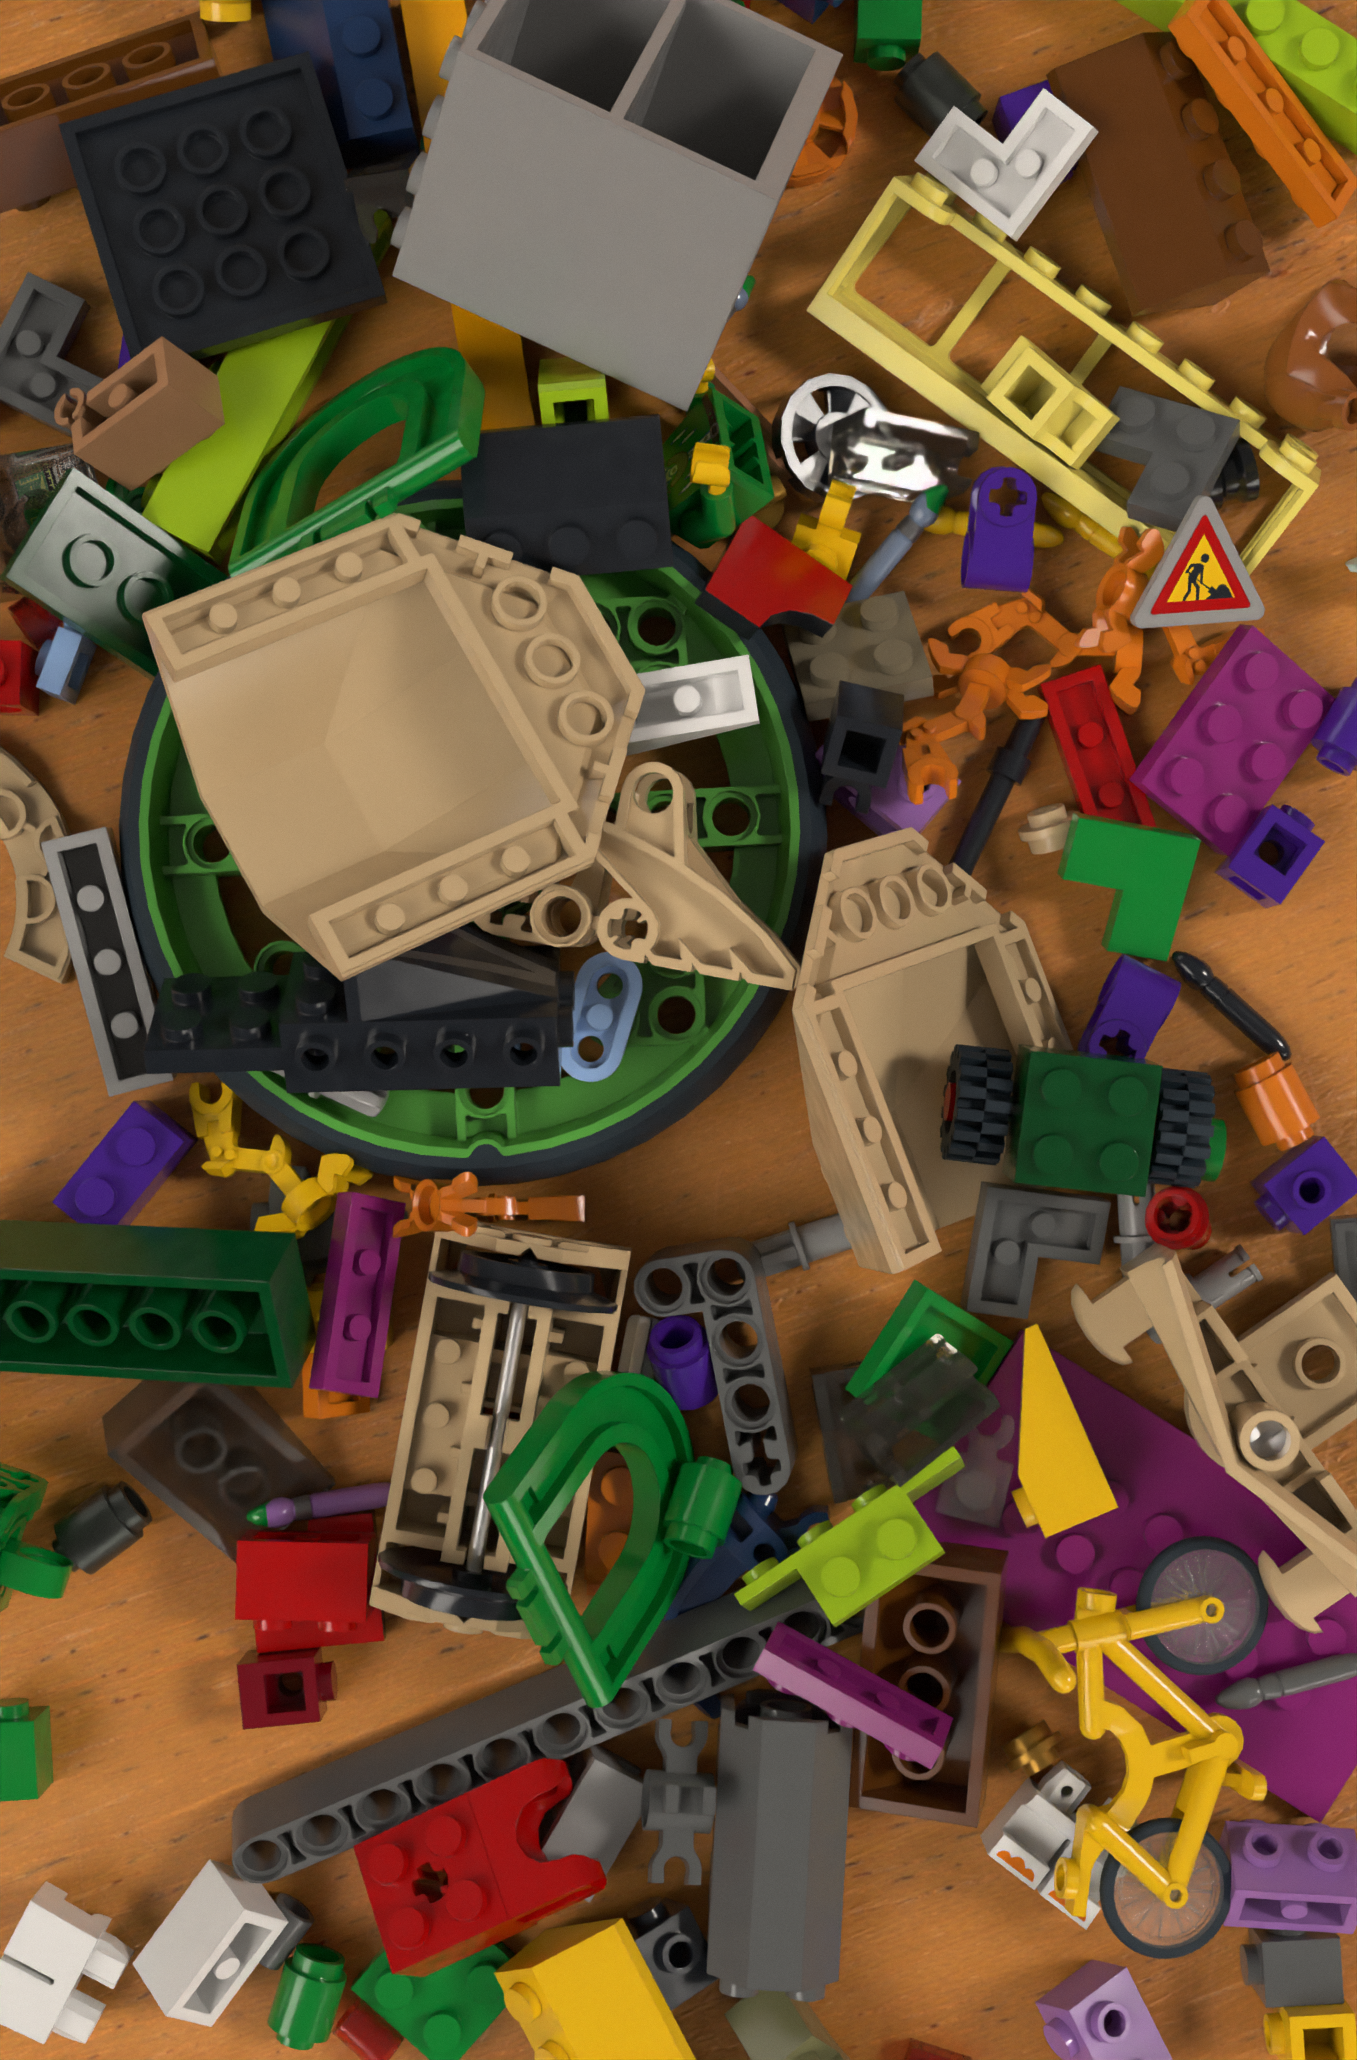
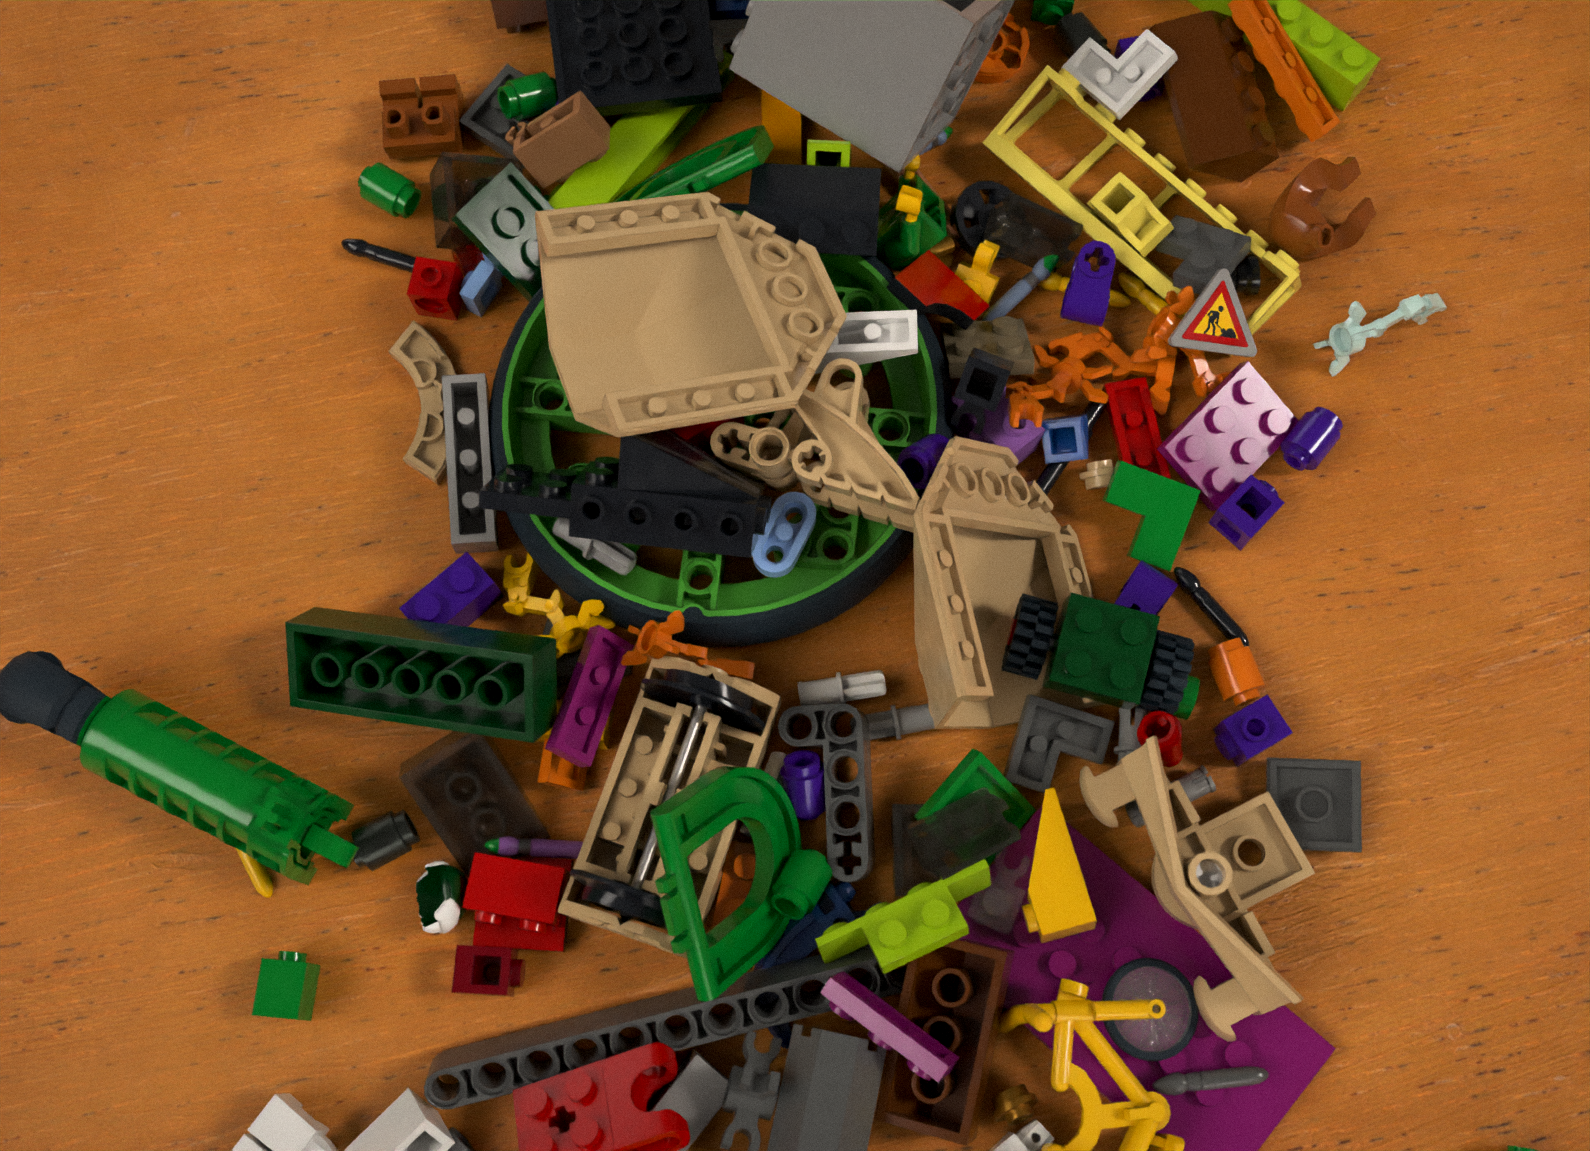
camera: 10 degrees right, 15 degrees down
(75, 333) = (527, 96): none -> green brick
(200, 1597) = (441, 897): none -> dark green hair
(713, 1210) = (842, 688): none -> white axle
(788, 884) = (921, 459): none -> dark purple brick
(992, 781) = (1065, 438): none -> blue slope

